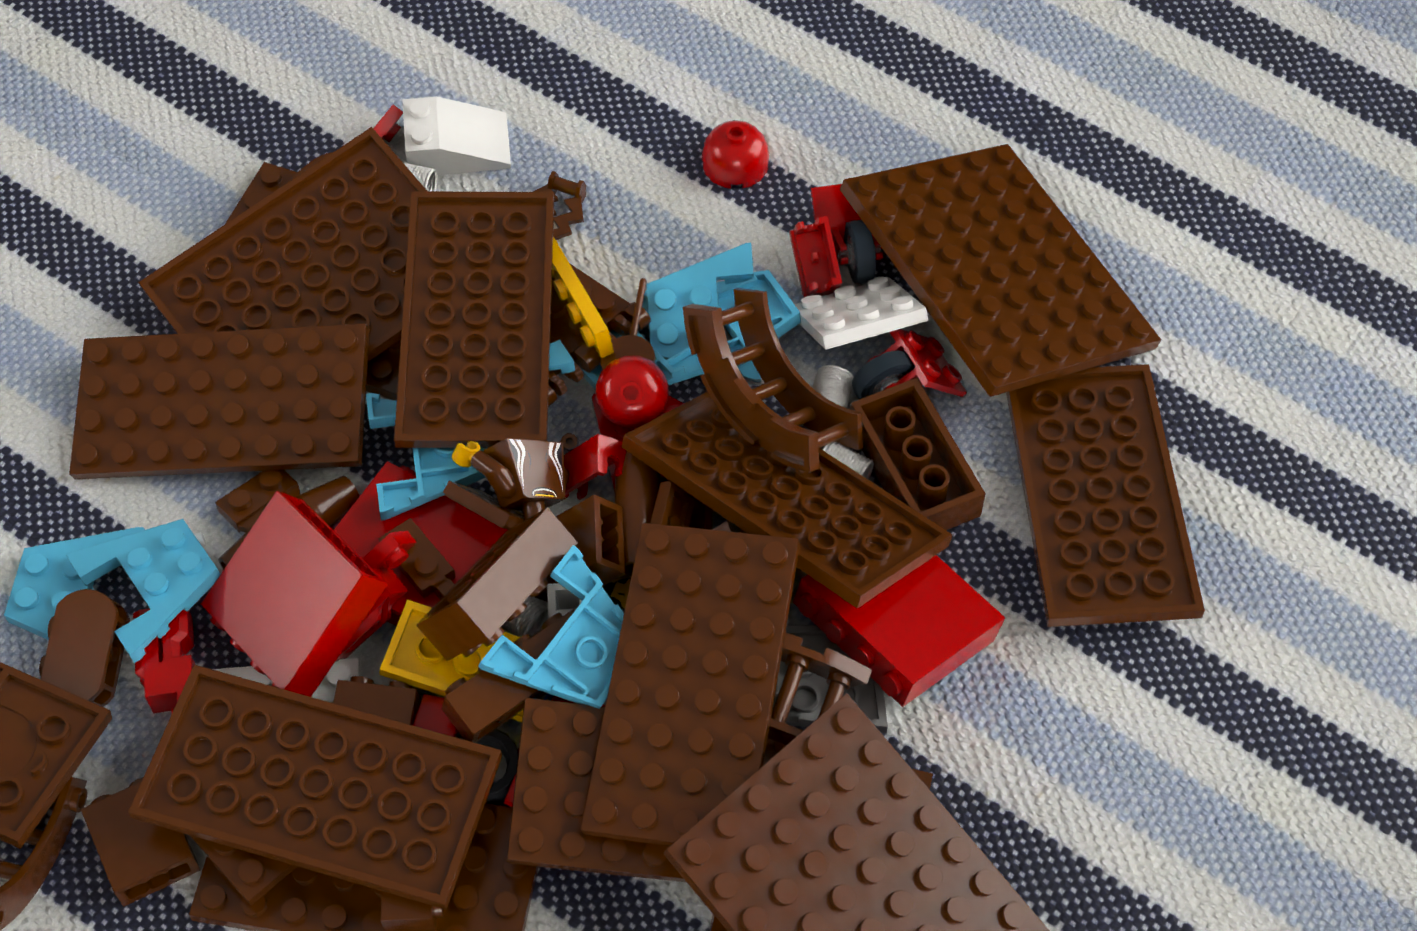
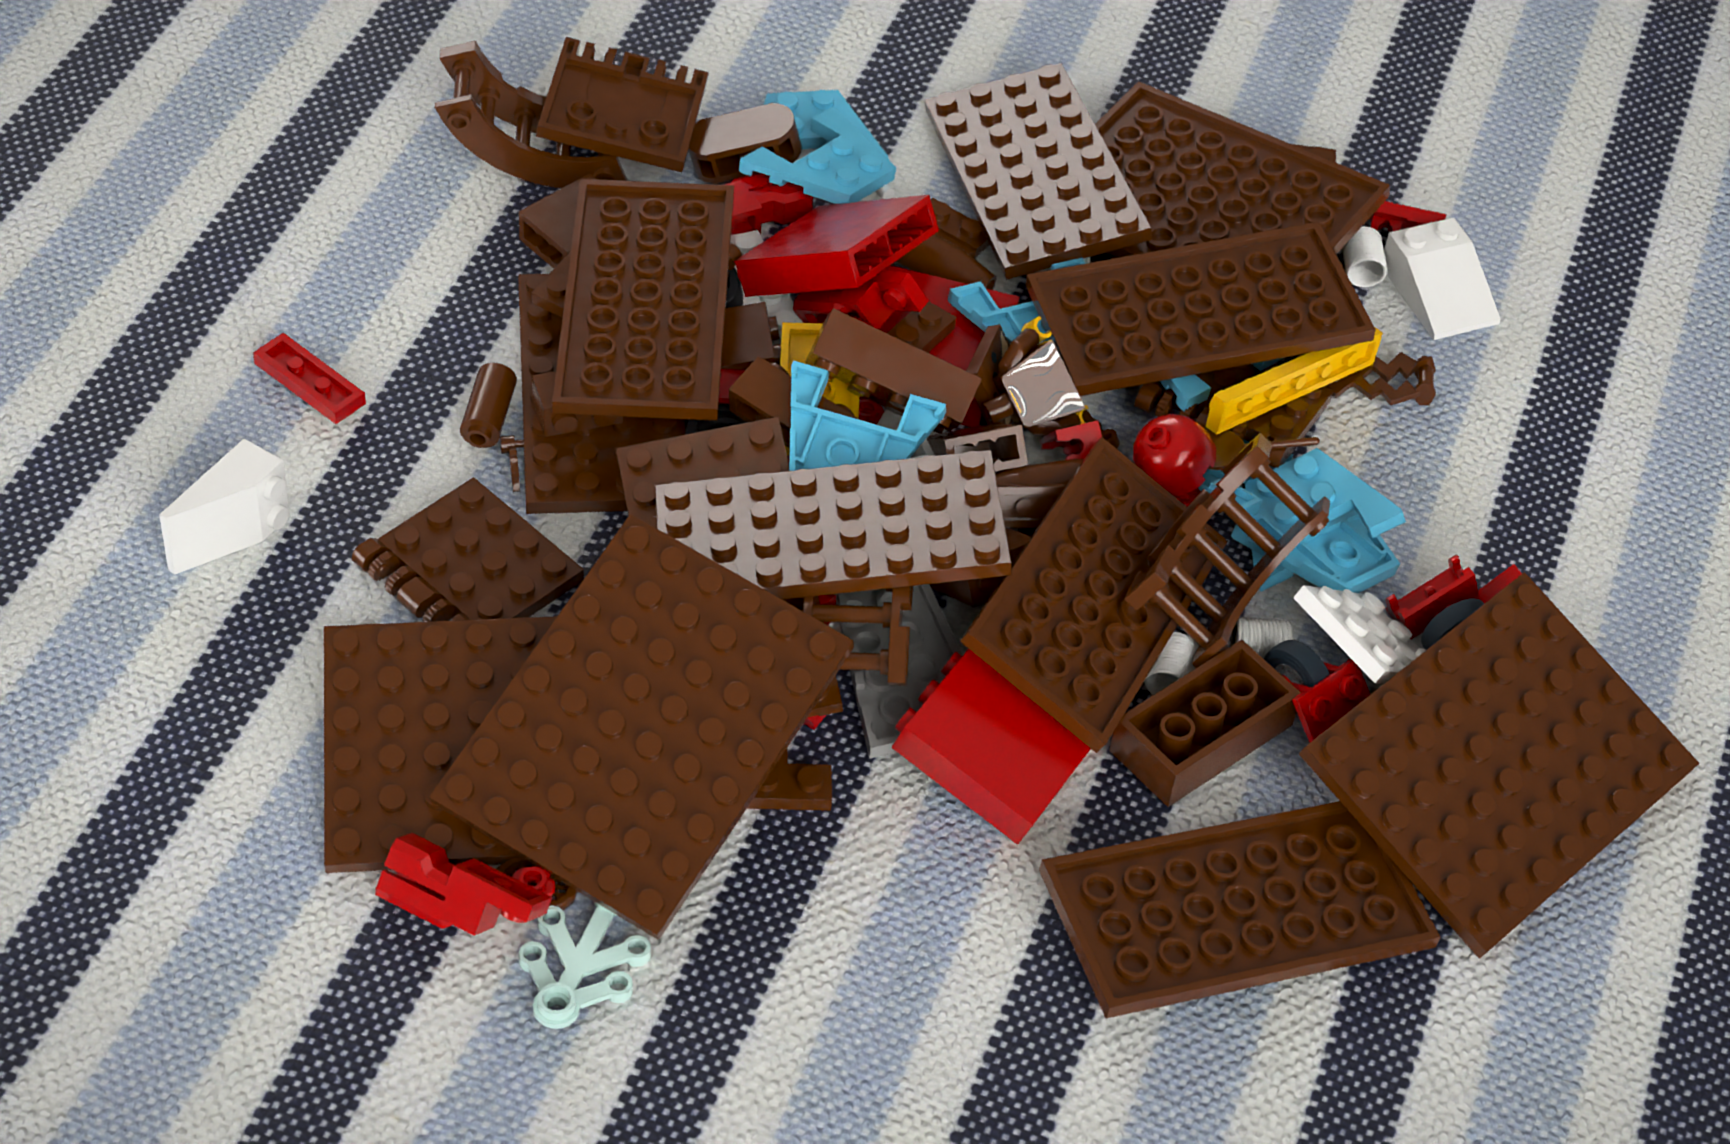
camera: 70 degrees right, 10 degrees down
(735, 154) = (1545, 513): red cylinder -> none

